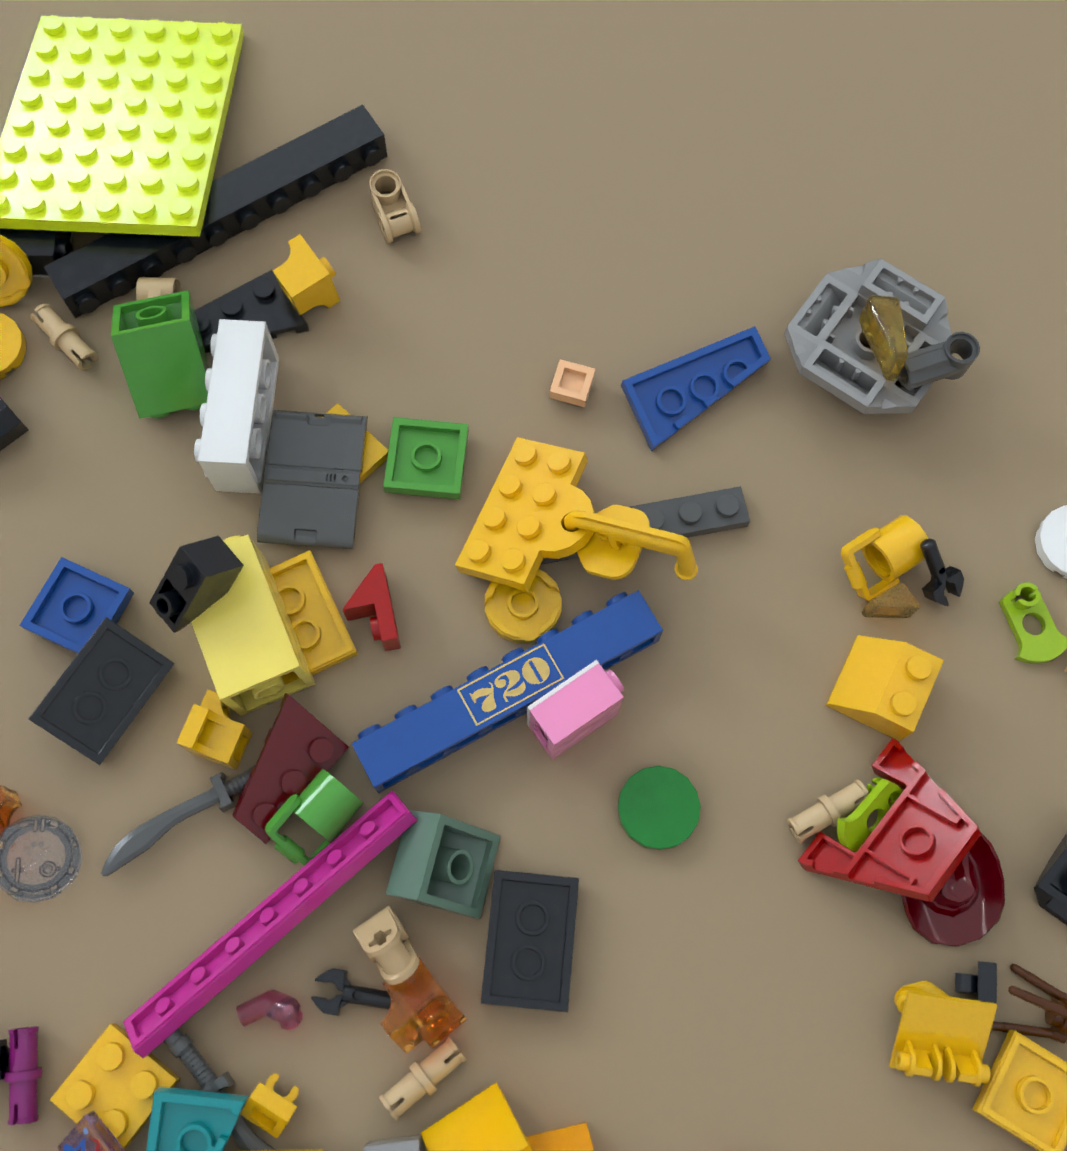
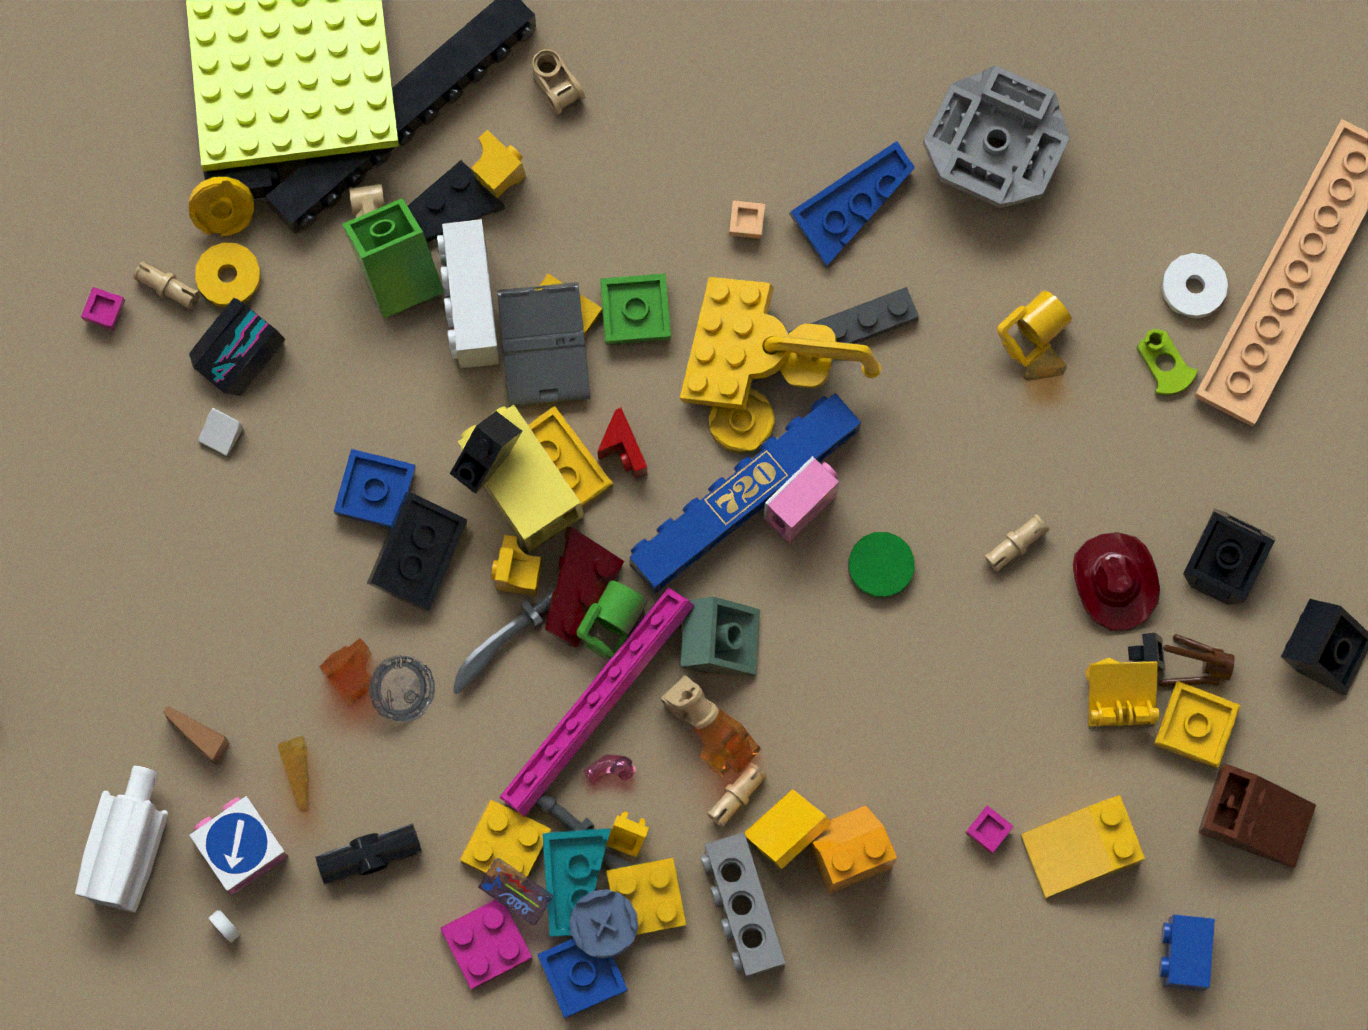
camera: 10 degrees left, 5 degrees up
(23, 1075) = (434, 846): magenta pin -> none
(64, 336) = (294, 254): tan pin -> none
(350, 994) = (667, 747): black bar -> none
(530, 941) = (798, 682): black plate -> none
(853, 829) = (1037, 556): lime piece -> none
(885, 333) = (1005, 133): clear yellow slope -> none
(885, 685) = (1047, 434): yellow slope -> none
(912, 845) = (1081, 554): red wing -> none
(938, 363) = (1051, 155): dark grey piece -> none
(940, 576) = (1081, 335): black bar -> none

